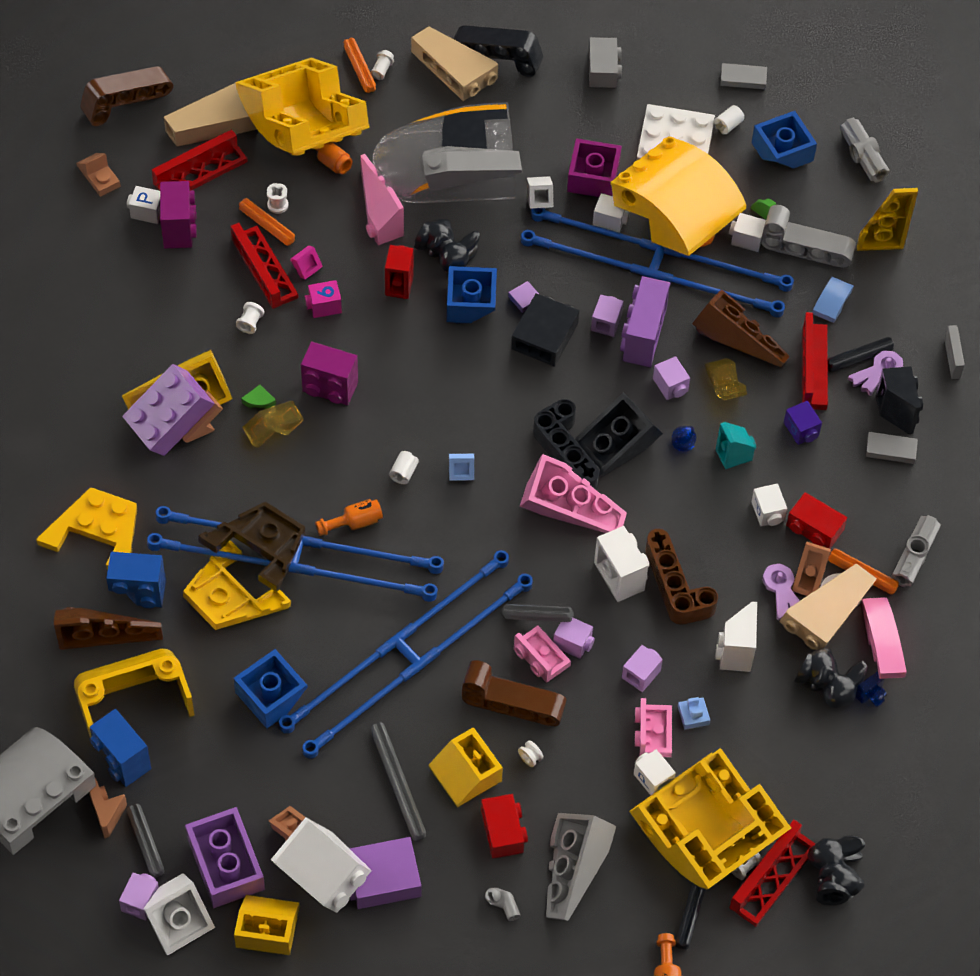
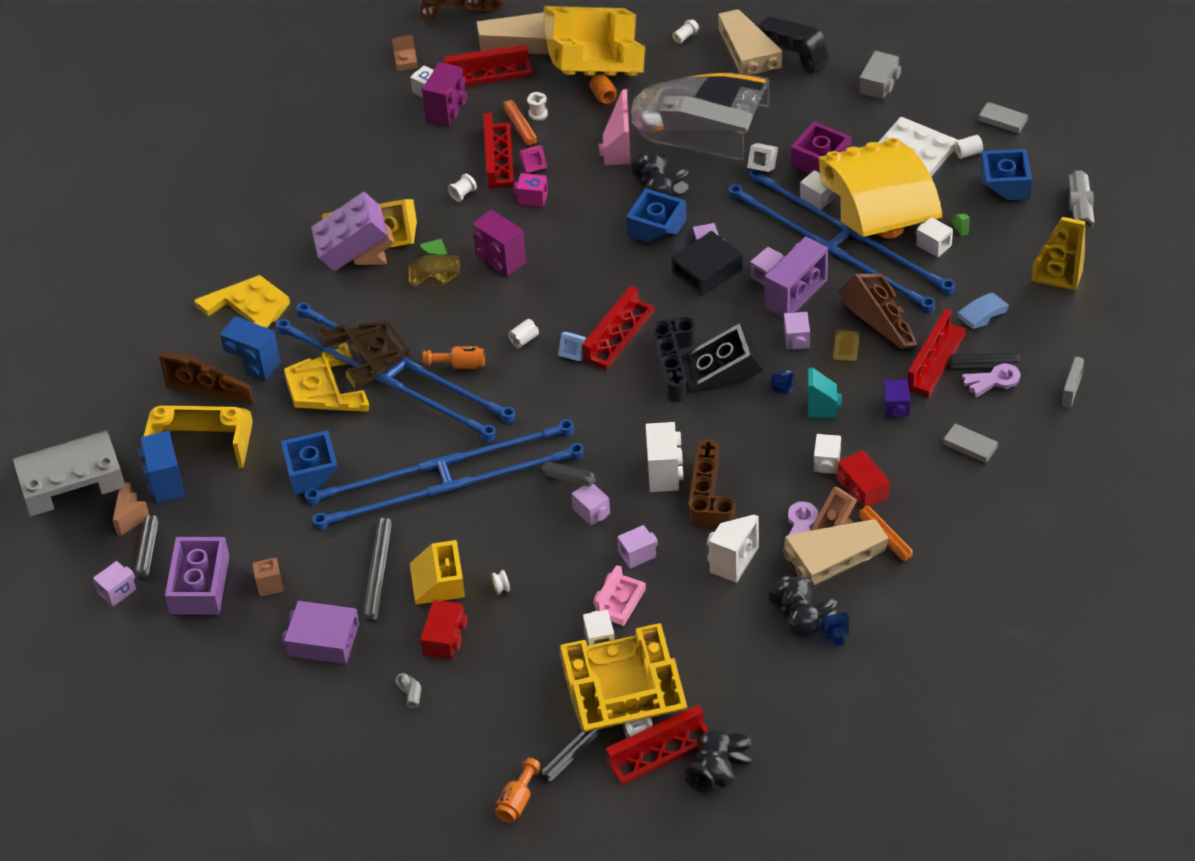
camera: 30 degrees right, 10 degrees down
(177, 914) = (135, 607): white slope -> none
(266, 924) = (200, 638): yellow slope -> none
(321, 864) = (266, 601): white slope -> none
(359, 65) = (666, 28): orange axle -> none
(399, 271) = (603, 183): red brick -> none
(487, 430) = (607, 329): none -> red fence
(509, 697) = (507, 532): reddish brown beam -> none
(541, 654) = (555, 508): bright pink bracket -> none
(566, 497) = (648, 394): bright pink wedge -> none
(579, 851) = (500, 666): light grey wedge -> none
(693, 713) = (664, 597): light blue tile -> none
(805, 241) = (981, 257): light grey beam -> none
(883, 638) = (869, 589): bright pink slope -> none
(899, 398) = (995, 400): black slope -> none
(920, 540) = (942, 529): light grey piece -> none

